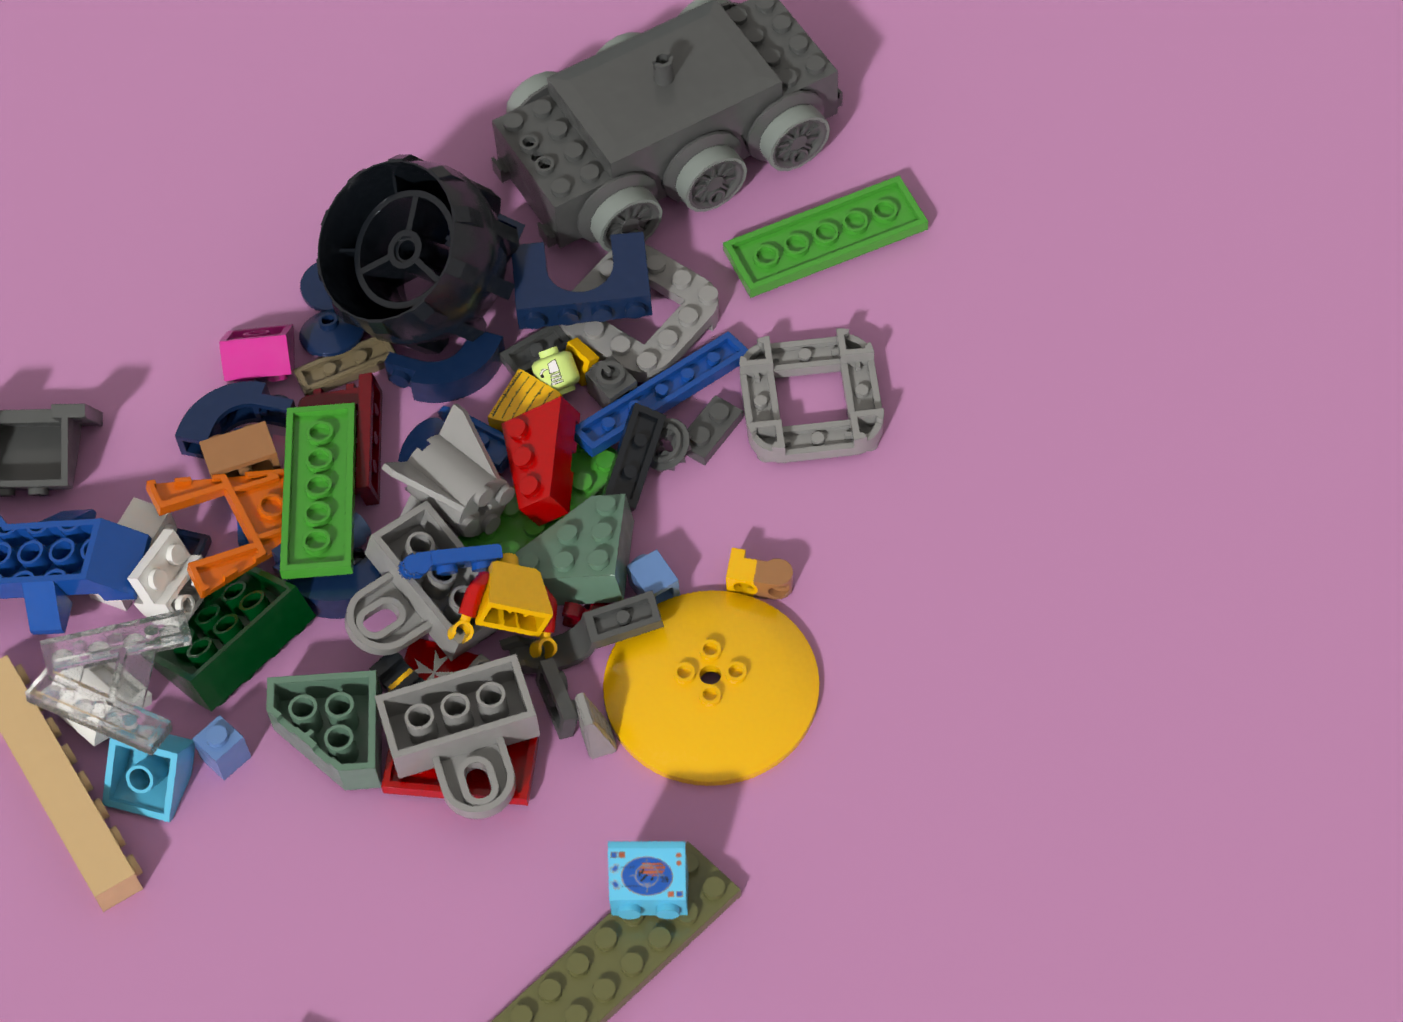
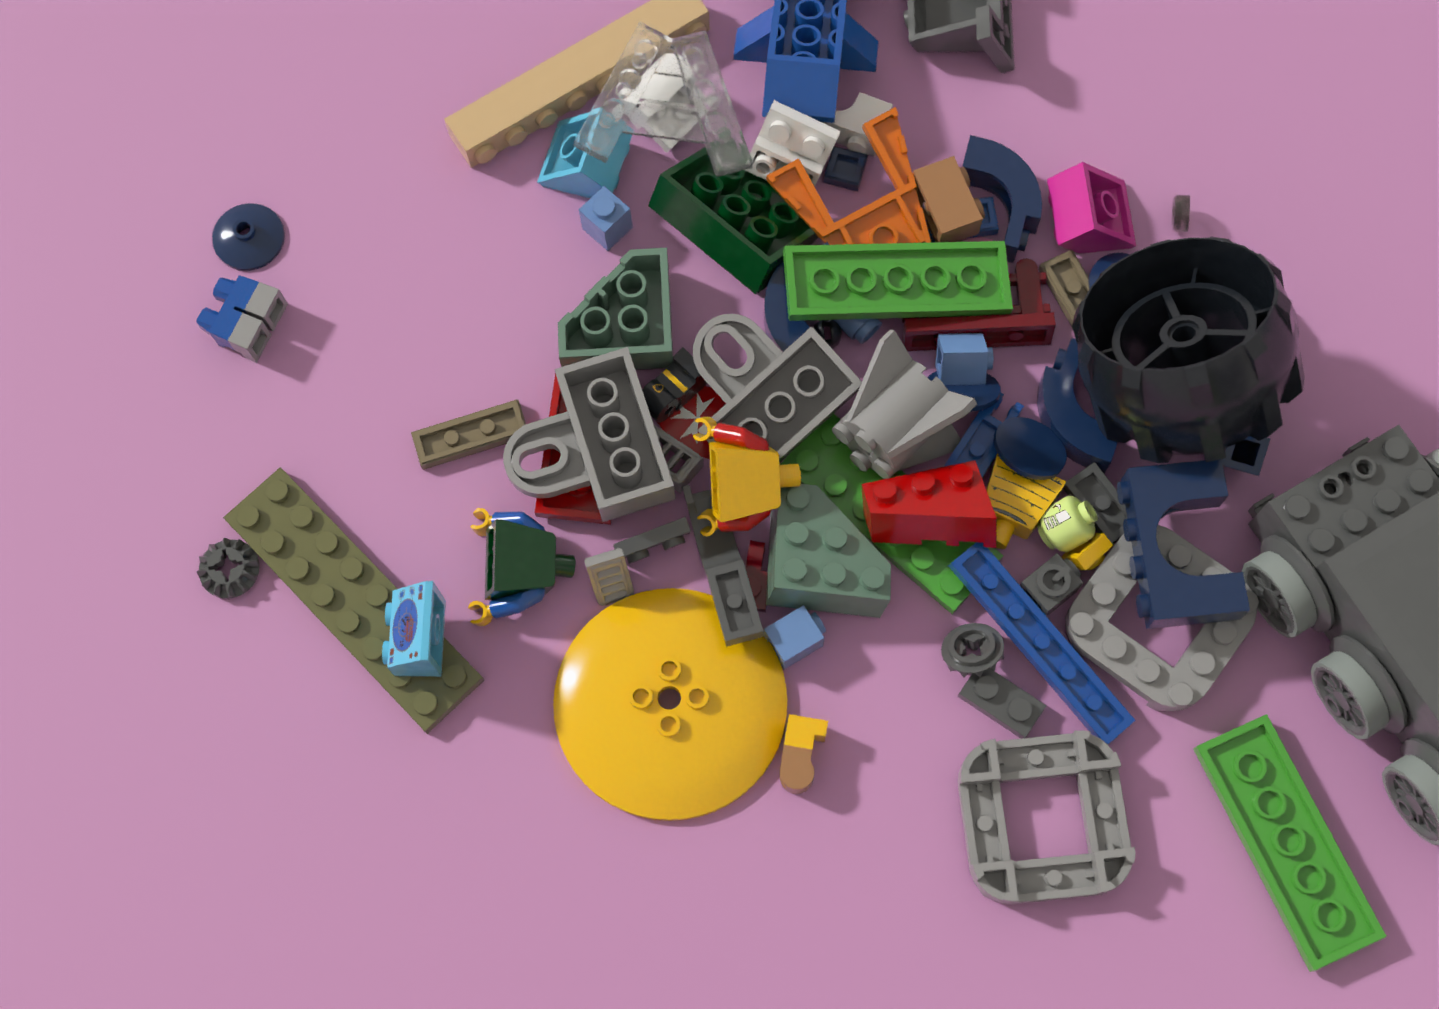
camera: 90 degrees right, 15 degrees up
(267, 286) = (1181, 213): none -> clear smoke tile
(394, 442) = (963, 359): none -> medium blue brick
(439, 870) = (467, 434): none -> dark tan tile
(449, 560) = (782, 408): blue hinge -> none
(488, 393) = (1030, 448): none -> dark blue piece
(575, 807) = (518, 563): none -> dark green torso
(634, 453) = (947, 610): black hinge -> none

